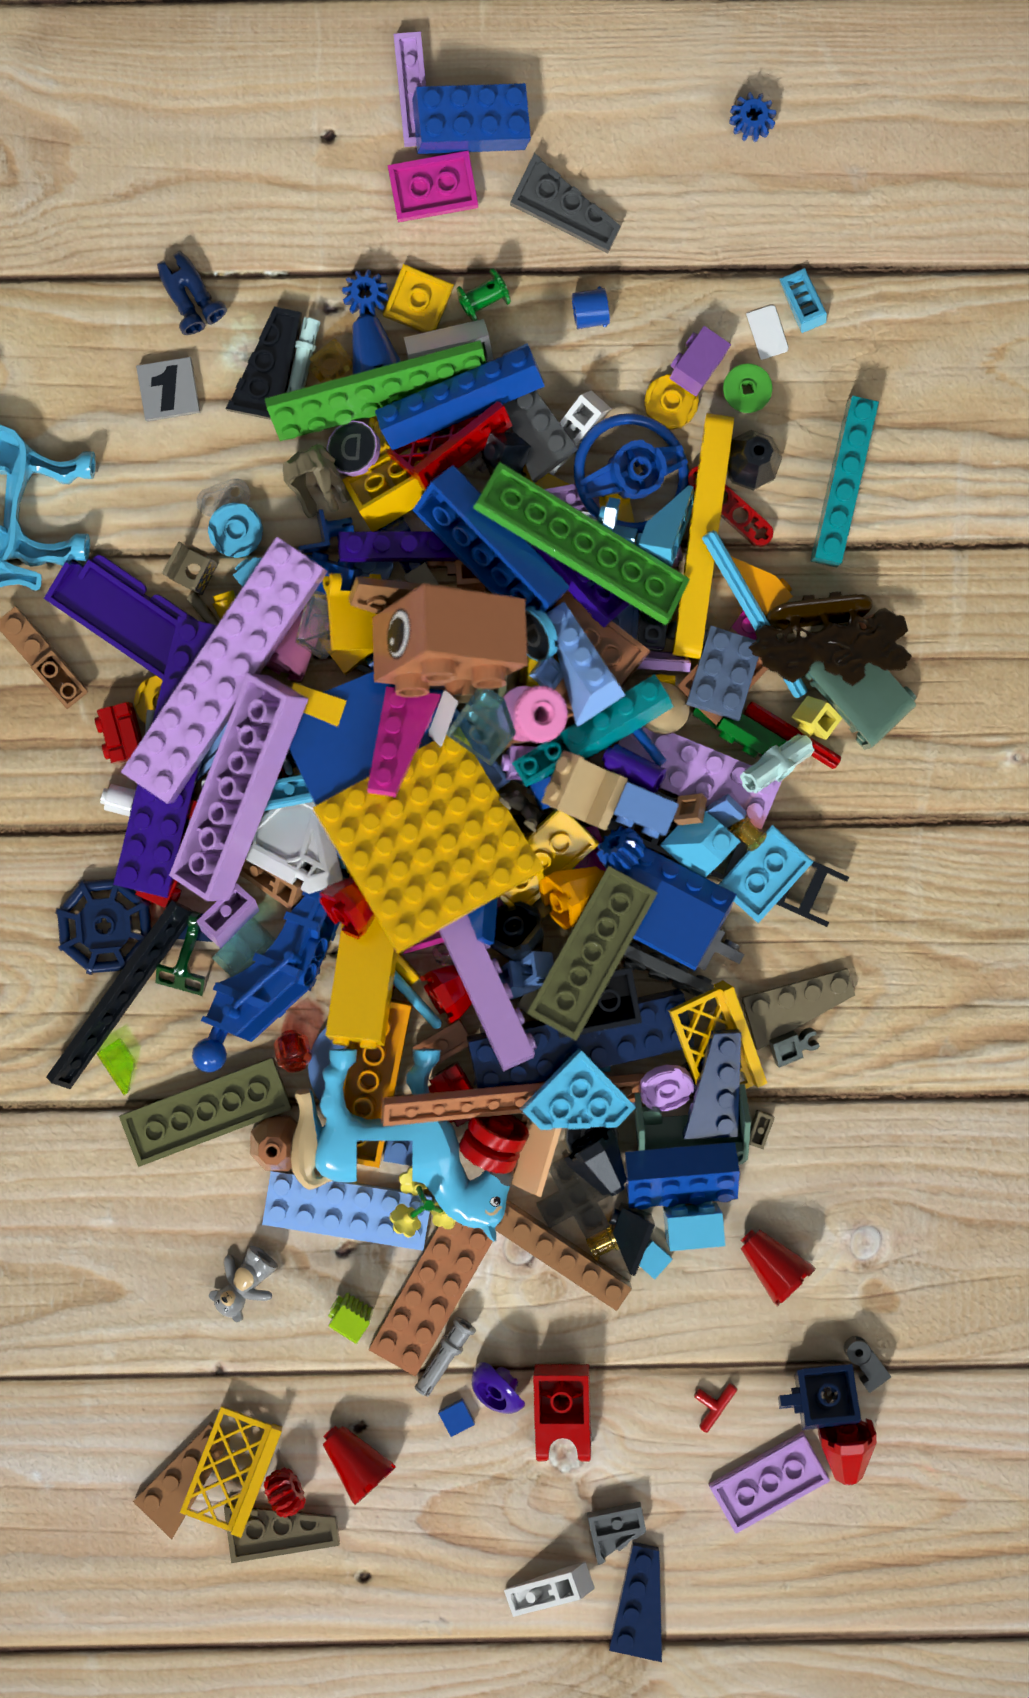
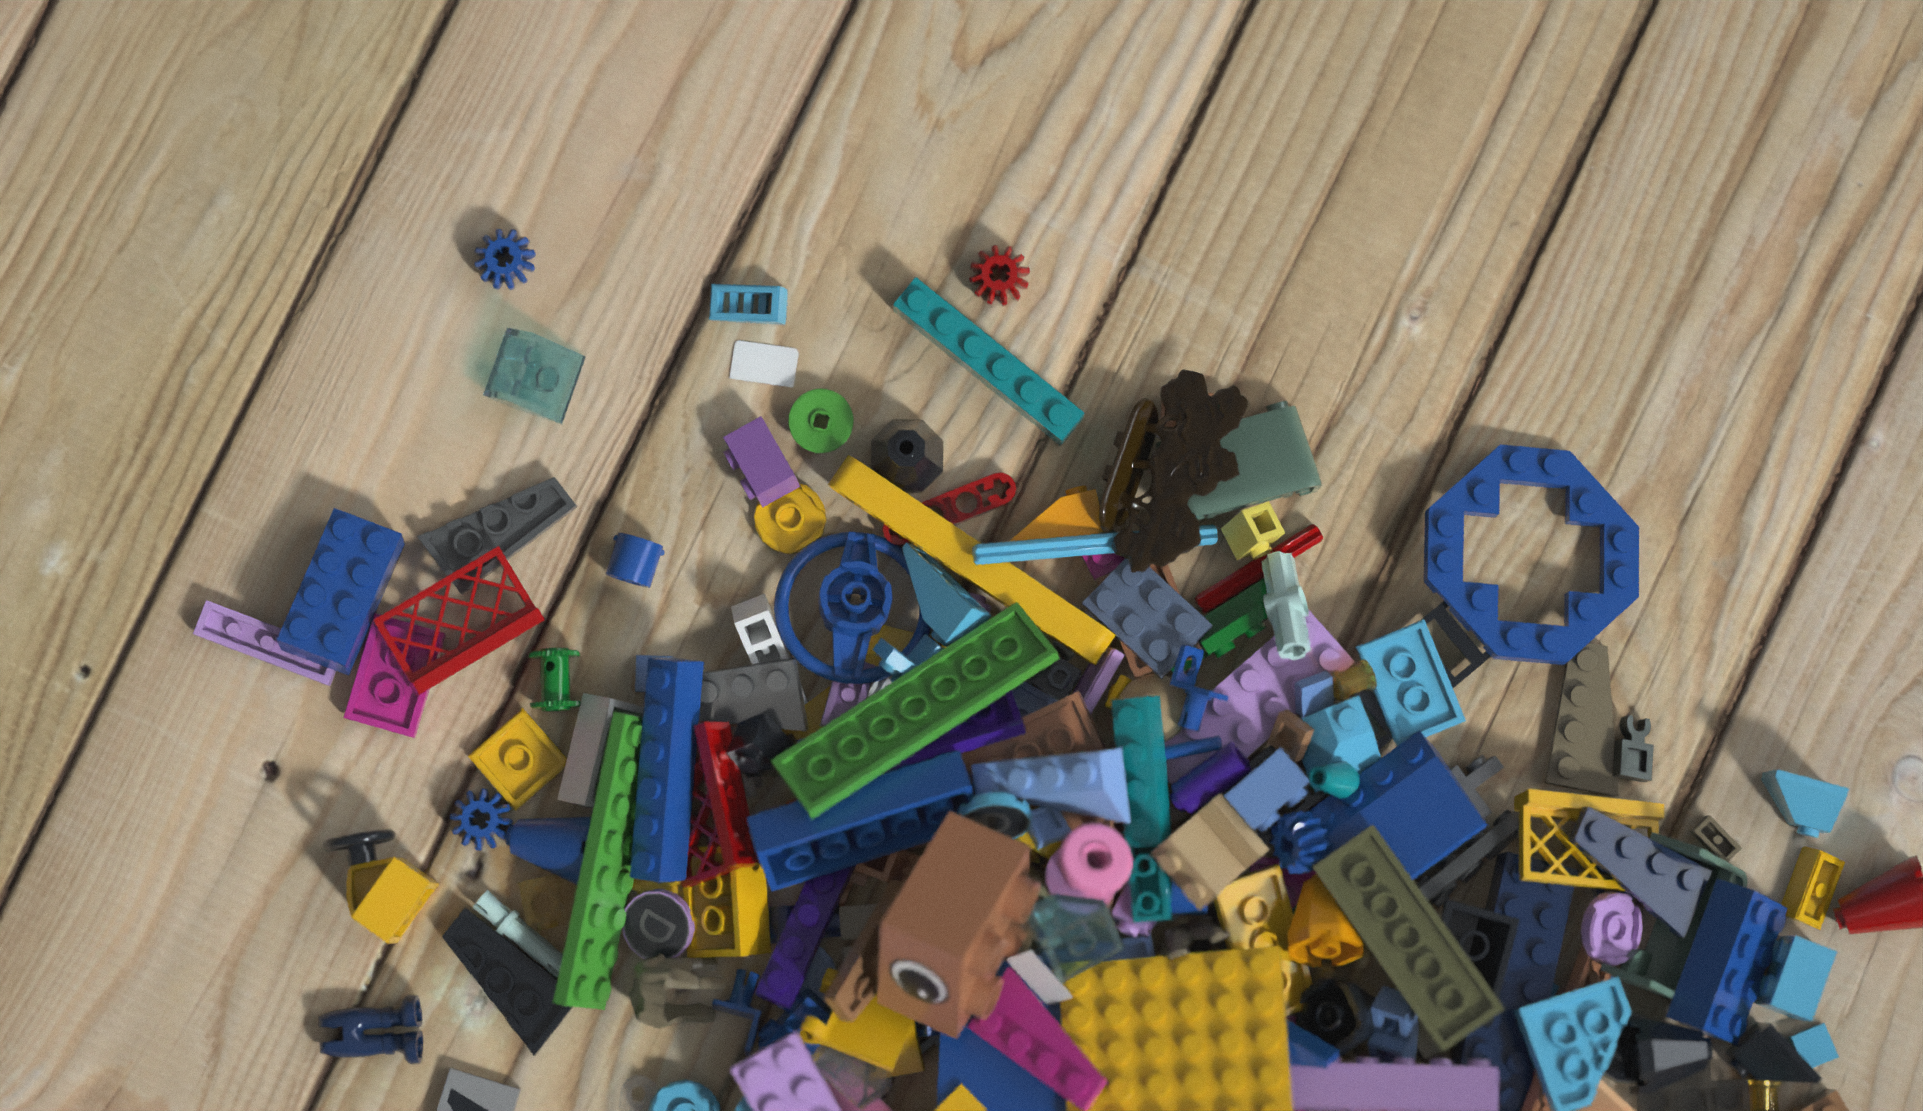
camera: 60 degrees left, 5 degrees down
(283, 252) = (382, 892): none -> yellow piece
(475, 228) = (474, 648): none -> red fence
(675, 852) = (1335, 779): none -> teal cone
(683, 177) = (534, 375): none -> clear light blue slope
(684, 732) = (1196, 696): none -> blue bracket
(760, 1208) = (1812, 886): none -> yellow slope
(815, 1177) = (1805, 801): none -> medium azure slope
(897, 462) = (1000, 263): none -> red gear
(943, 935) = (1585, 505): none -> blue plate

